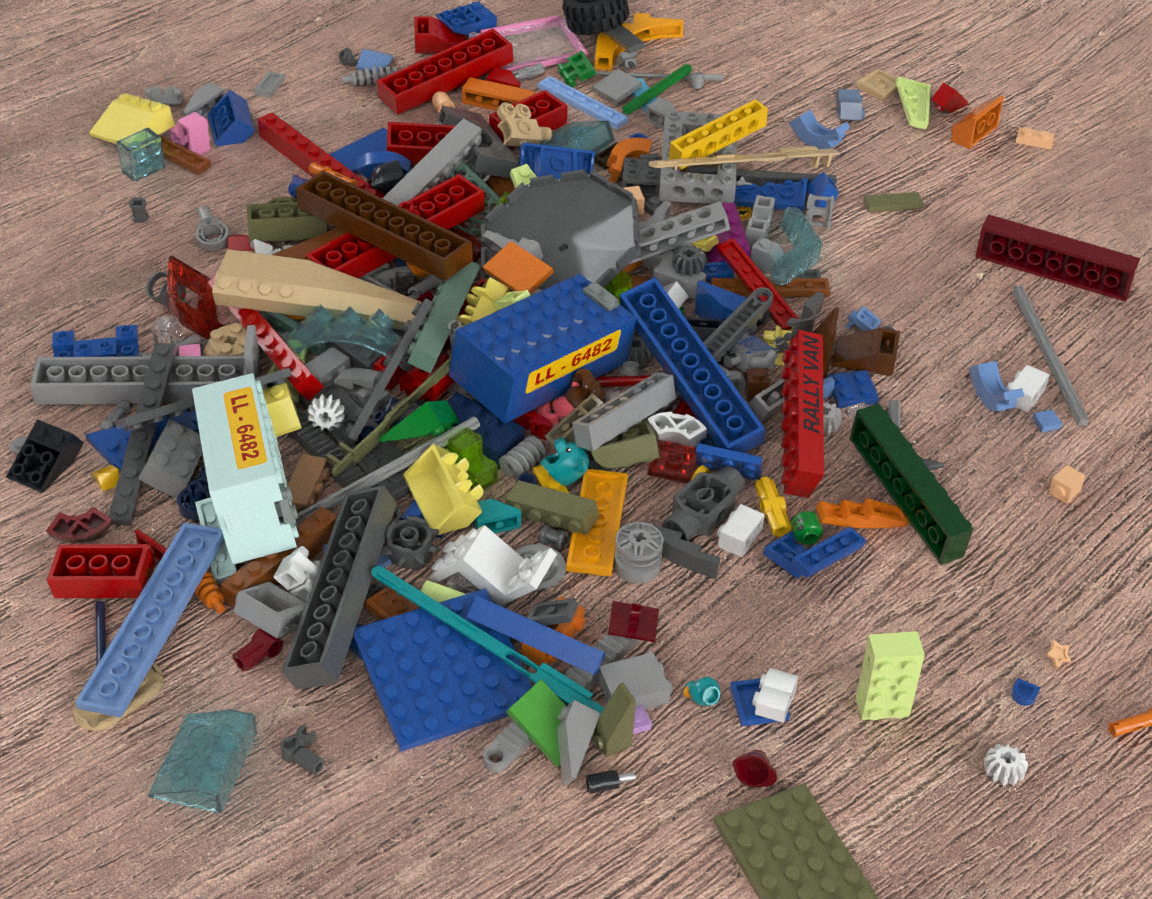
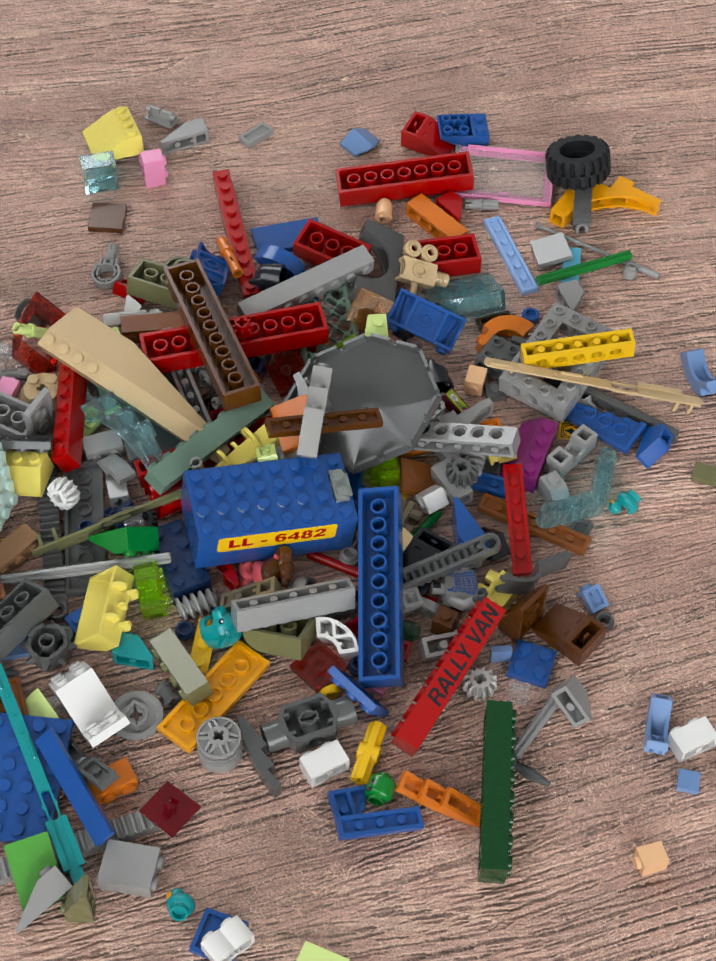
camera: 30 degrees right, 10 degrees up
(138, 208) = (66, 228): dark grey bush -> none
(174, 192) = (107, 217): none -> tile
(184, 157) = (134, 181): dark orange plate -> none
(188, 293) = (29, 330): none -> yellowish green pin
(231, 120) = (197, 162): blue slope -> none
(346, 56) = (338, 130): dark grey plate -> none
(368, 76) = (343, 158): light grey piece -> none
(382, 378) = (121, 482): dark grey plate -> none
(497, 172) = (365, 304): none -> clear orange plate
(543, 241) = (314, 411): none -> light grey arch
(549, 253) = (333, 422): none -> reddish brown plate
(582, 69) = (531, 217): green plate -> none
(607, 780) = (47, 946): black piece -> none
(641, 720) = (111, 900): lavender plate -> none
(826, 212) = (627, 459): light grey piece -> none
(834, 242) = (628, 500): none -> teal animal
(913, 398) = (573, 701): none -> light grey slope

